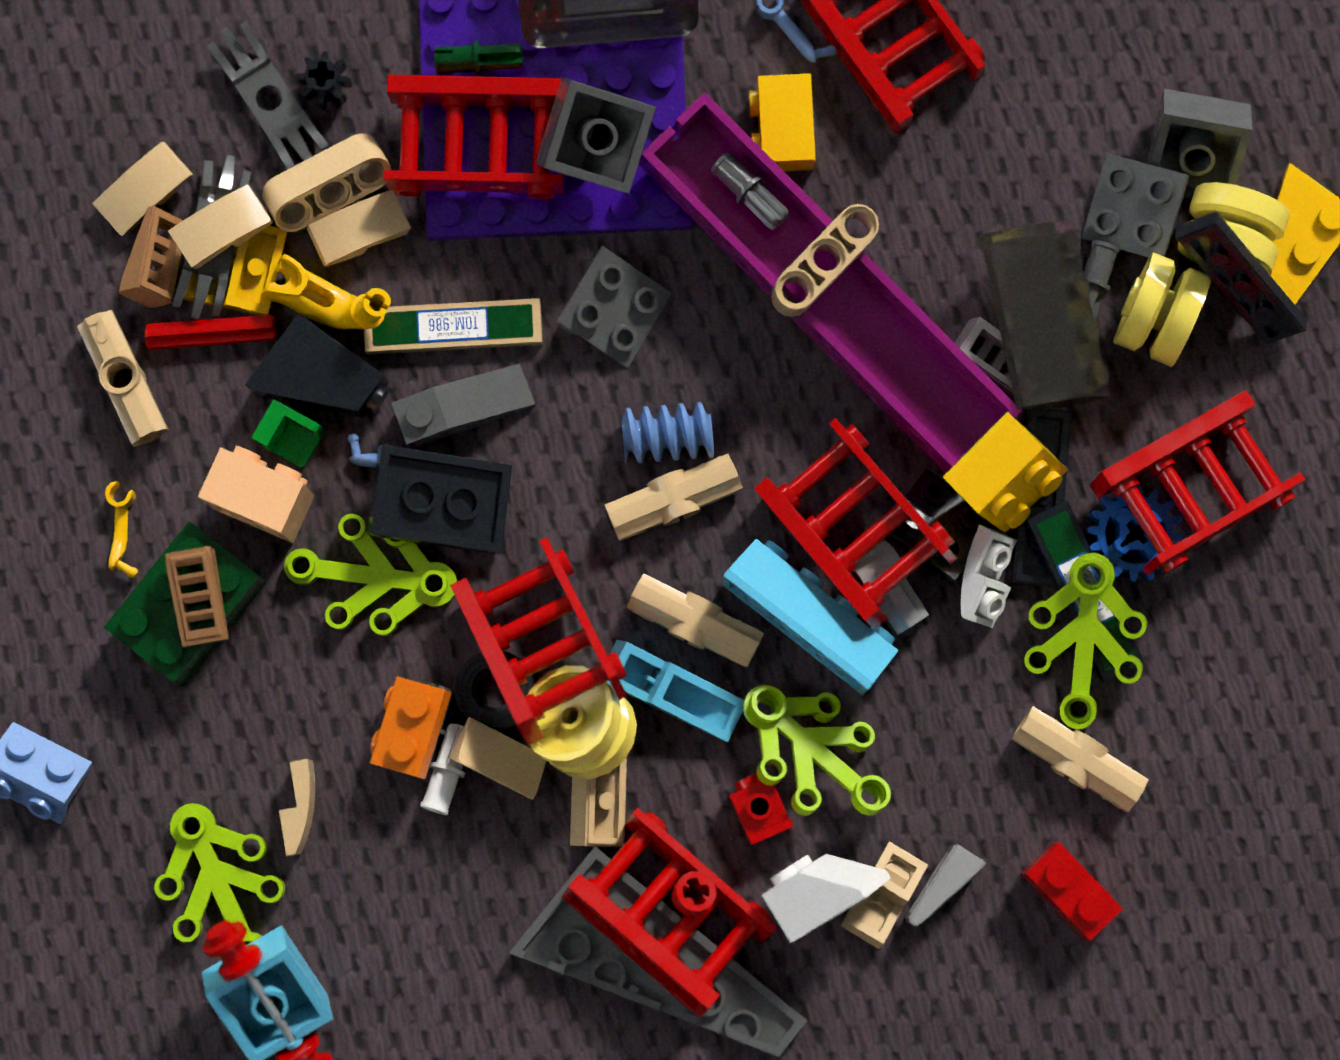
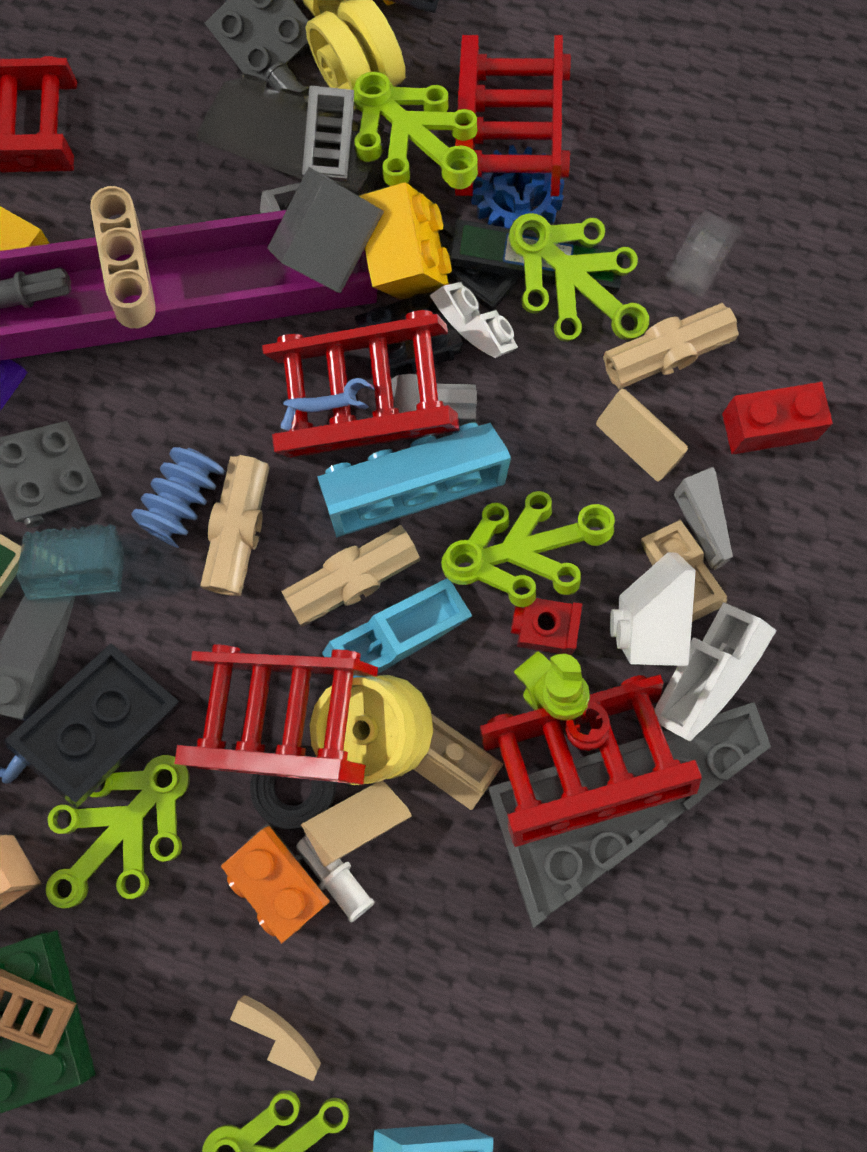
camera: 60 degrees left, 5 degrees down
(555, 387) = (71, 562): none -> clear light blue brick
(705, 846) = (554, 685): none -> lime piece
(810, 970) = (714, 671): none -> white slope
(818, 501) = (326, 402): none -> medium blue piece
(961, 404) = (324, 230): none -> dark grey slope
(979, 784) = (641, 435): none -> tan slope
(1088, 330) = (334, 101): none -> light grey slope
(1112, 411) = (377, 96): none -> lime plant
(1193, 734) = (703, 253): none -> clear slope

